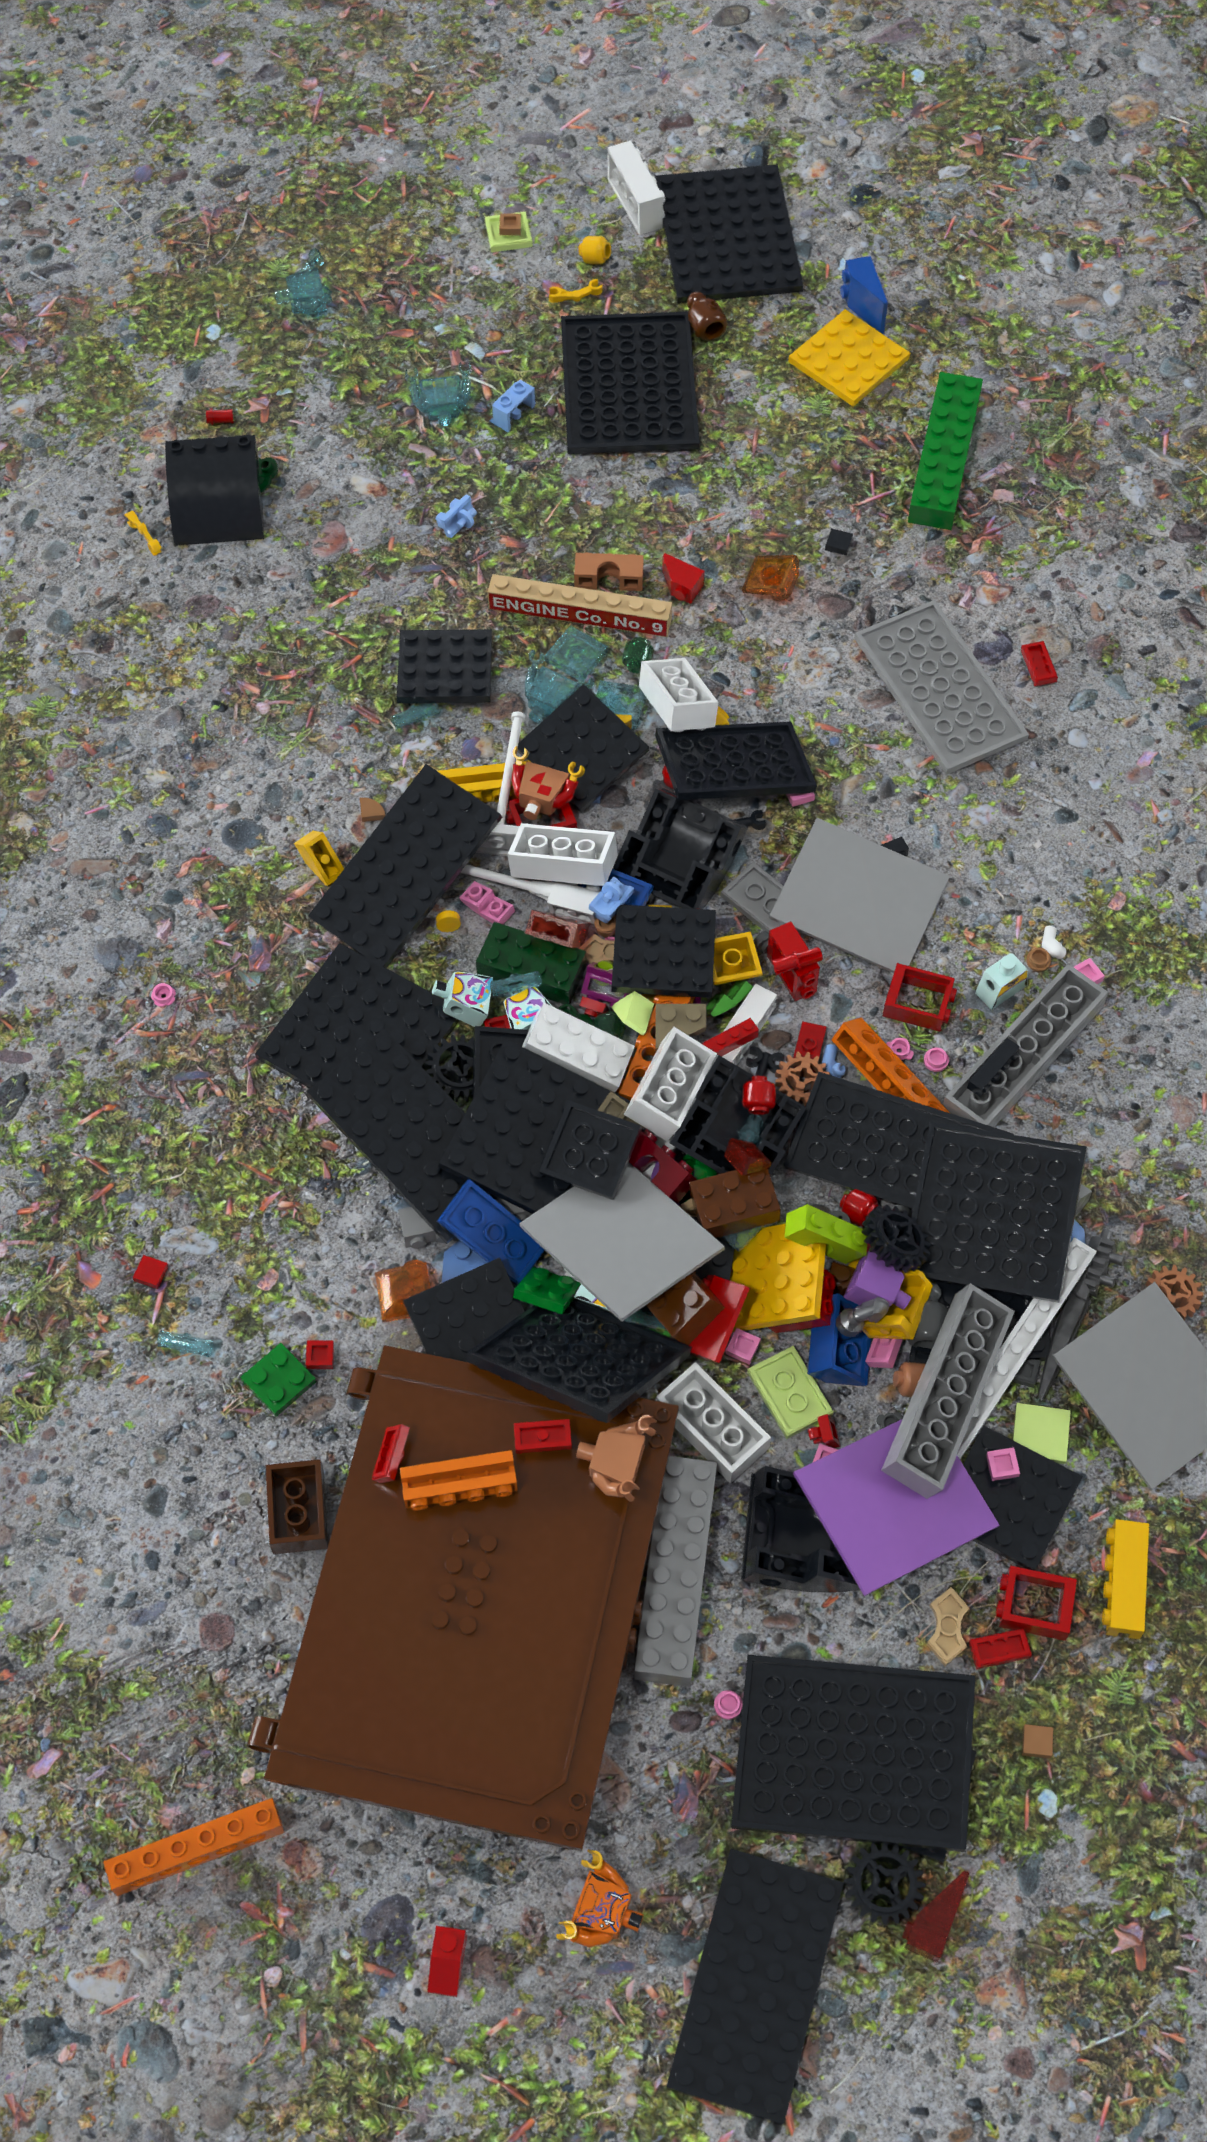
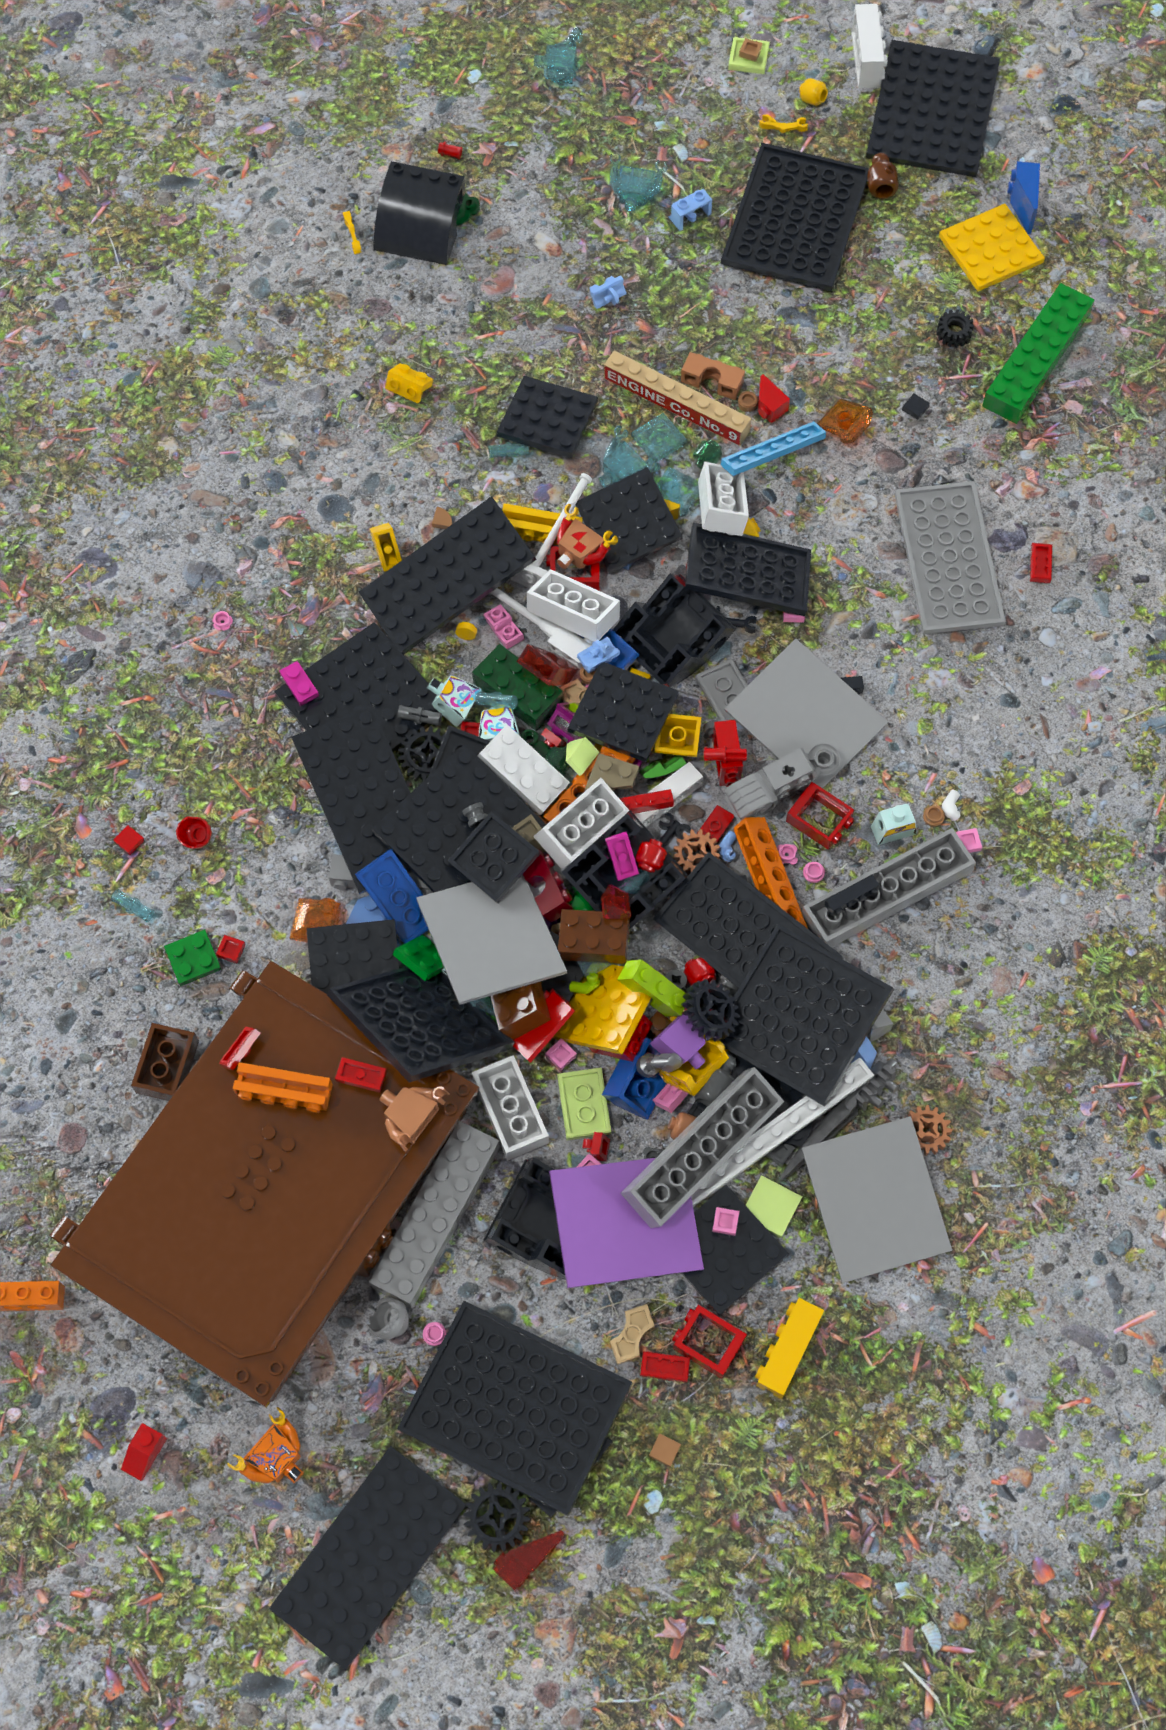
camera: 20 degrees right, 5 degrees up
(226, 1237) = (193, 832): none -> red hair
(272, 675) = (407, 382): none -> yellow bracket
(282, 1035) = (299, 683): none -> dark pink plate
(417, 1028) = (406, 713): none -> dark grey pin
(550, 1111) = (474, 814): none -> dark grey wheel
(656, 588) = (747, 401): none -> medium nougat tile
(672, 1704) = (389, 1319): none -> light grey hair
(708, 627) = (773, 448): none -> dark azure plate
(729, 1105) = (621, 856): none -> dark pink plate
(746, 1260) = (592, 983): none -> lime arm
(846, 440) = (952, 337): none -> black tyre
(853, 982) = (761, 790): none -> light grey brick

